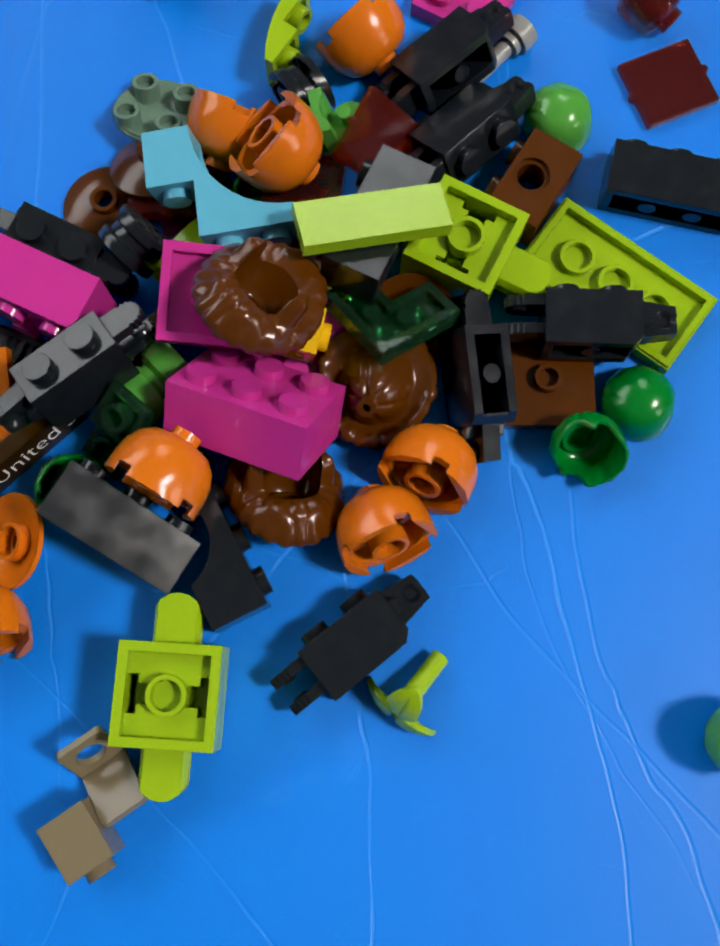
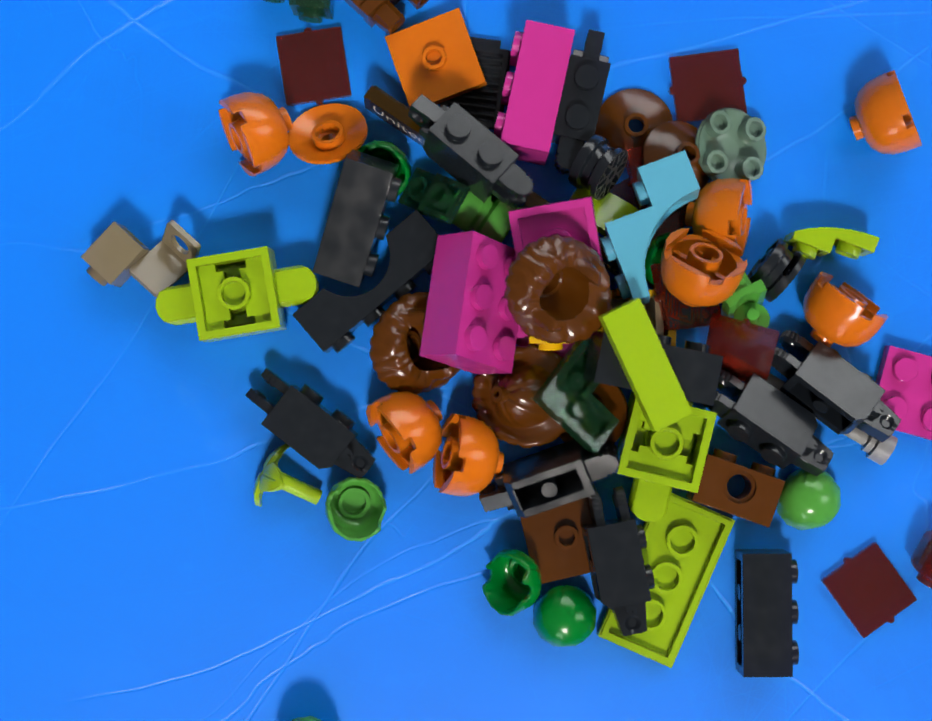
camera: 80 degrees right, 10 degrees up
(82, 125) = (706, 84): none -> clear red piece
(165, 468) = (404, 248): orange cylinder -> none
(464, 612) = (355, 508): none -> bright green hair

